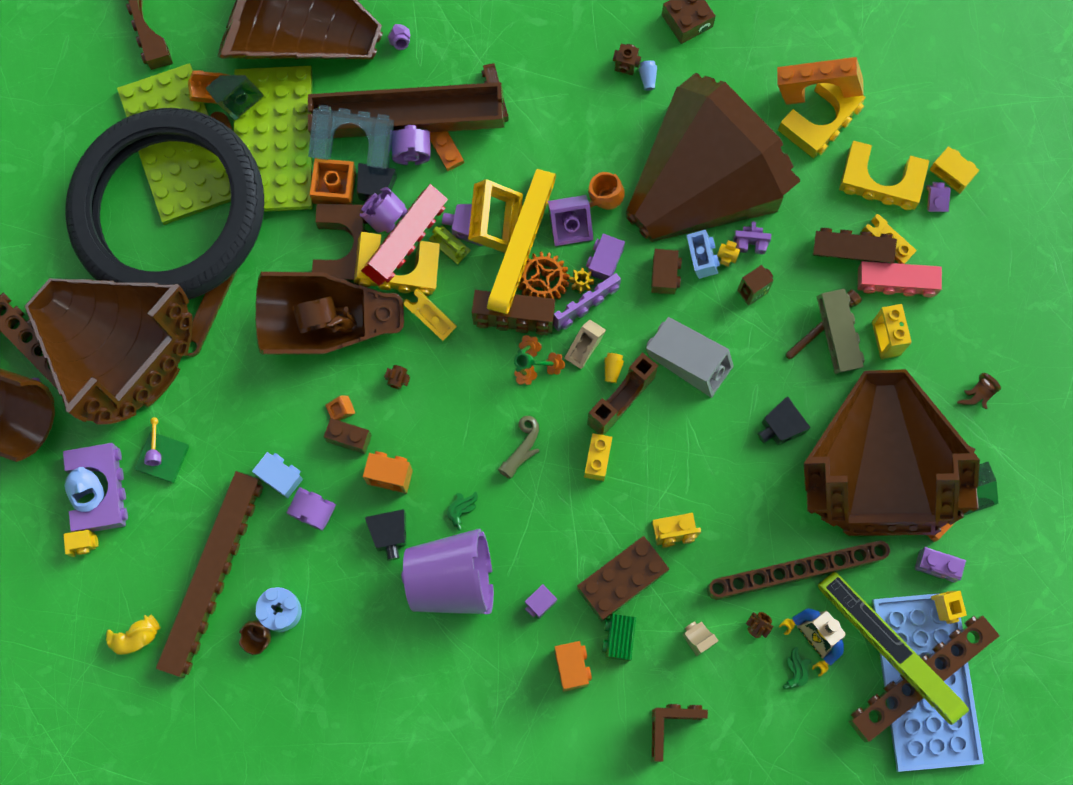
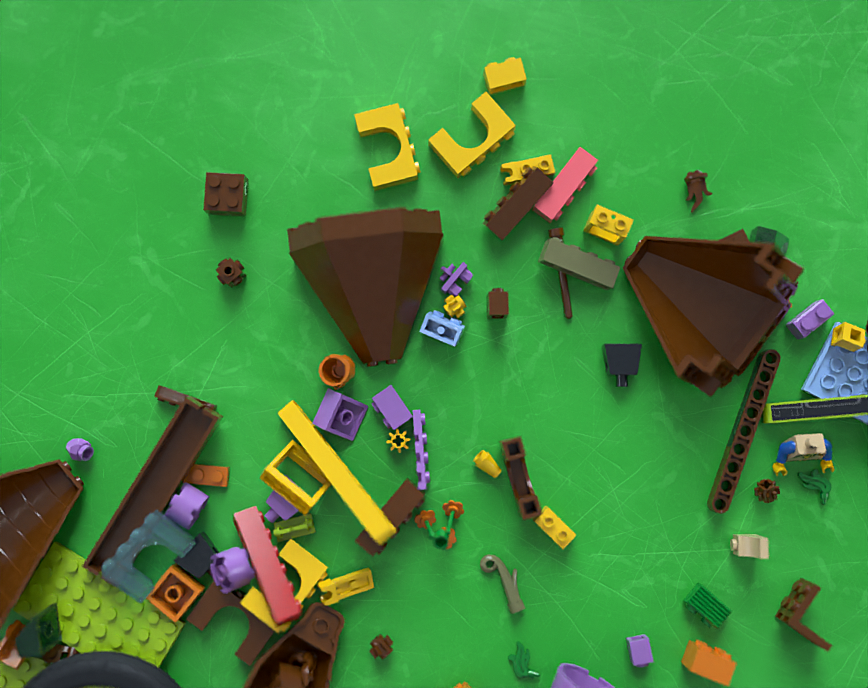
camera: 55 degrees left, 10 degrees up
(550, 274) = (392, 474): orange gear -> none
(585, 343) = (453, 473): tan arch -> none
(622, 578) = (663, 574): reddish brown brick -> none
(648, 74) = (256, 263): light blue cone -> none
(665, 271) = (436, 368): reddish brown brick -> none
(675, 529) = (652, 505): yellow bracket -> none
(690, 356) = (519, 397): light grey slope -> none
(840, 72) = (373, 110): orange arch -> none
(938, 197) = (518, 105): medium lavender bracket -> none

